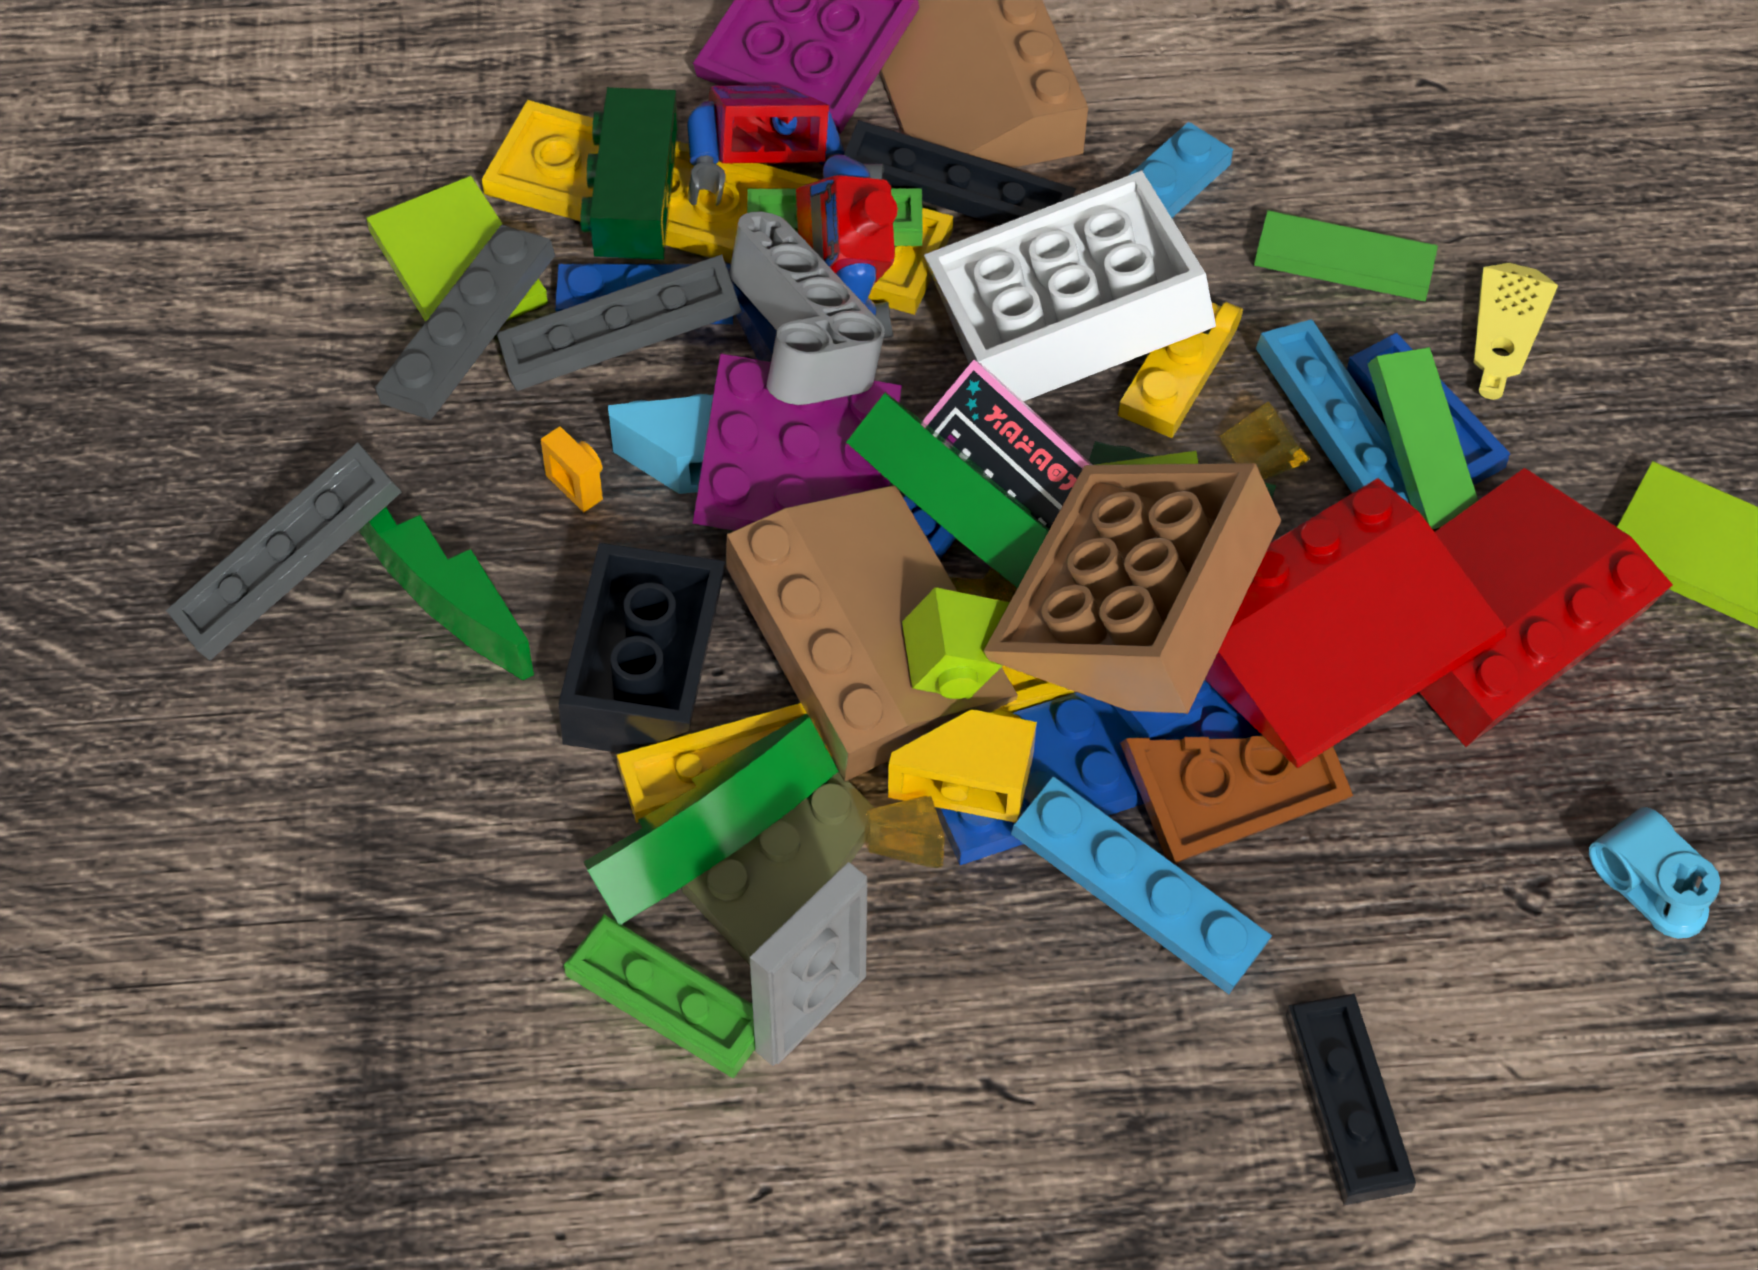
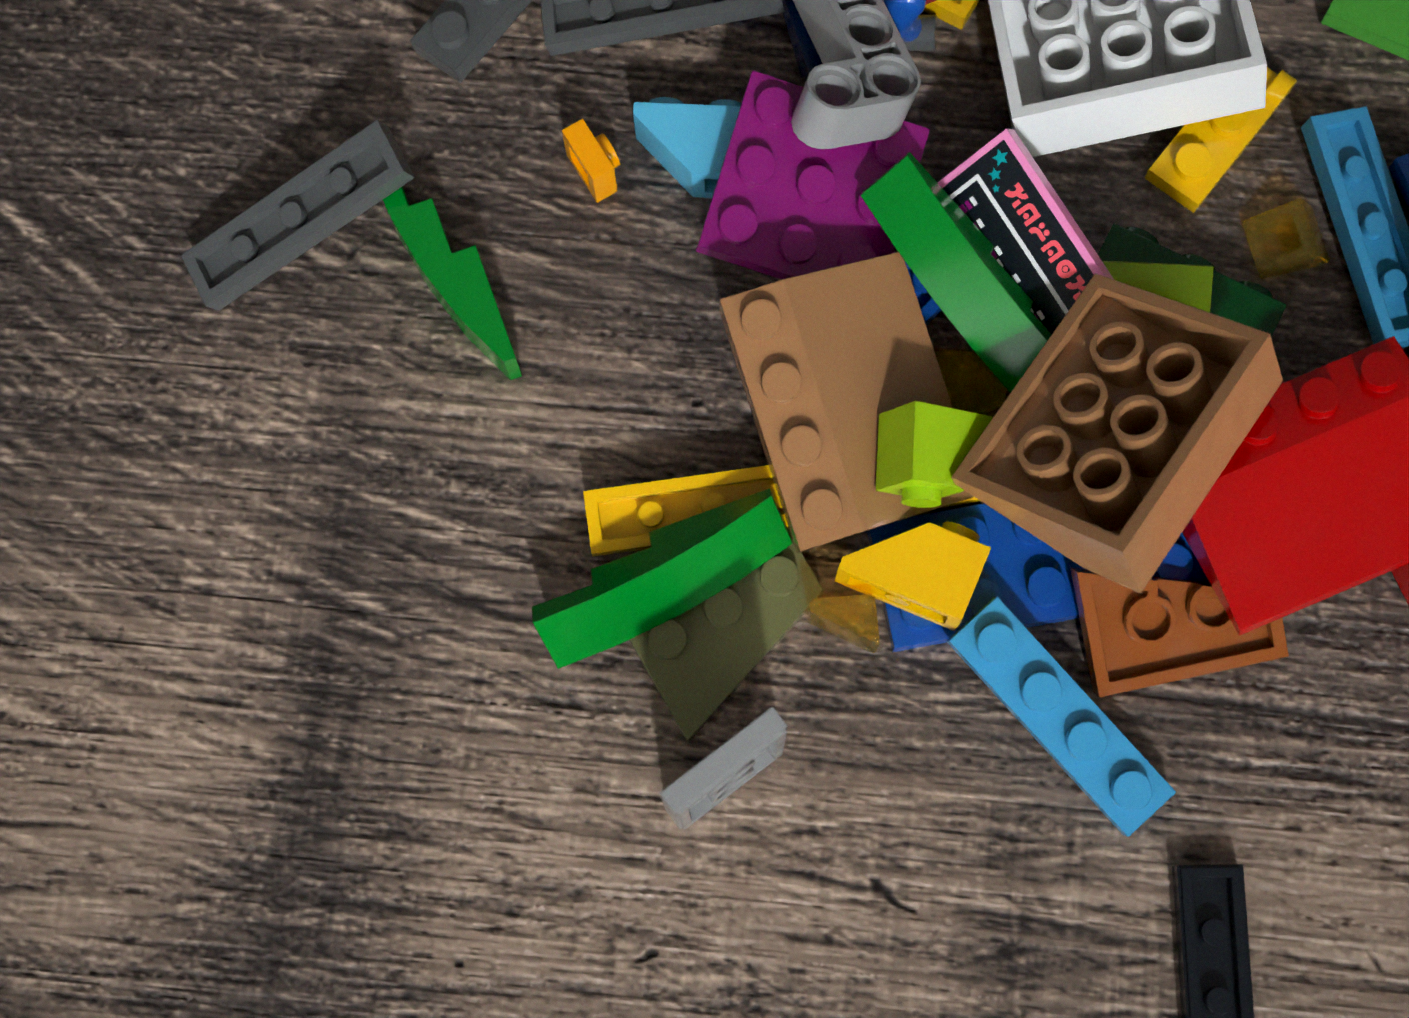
camera: 15 degrees right, 20 degrees up
(638, 648) = (623, 381): black slope -> none
(665, 995) = (591, 742): bright green tile -> none

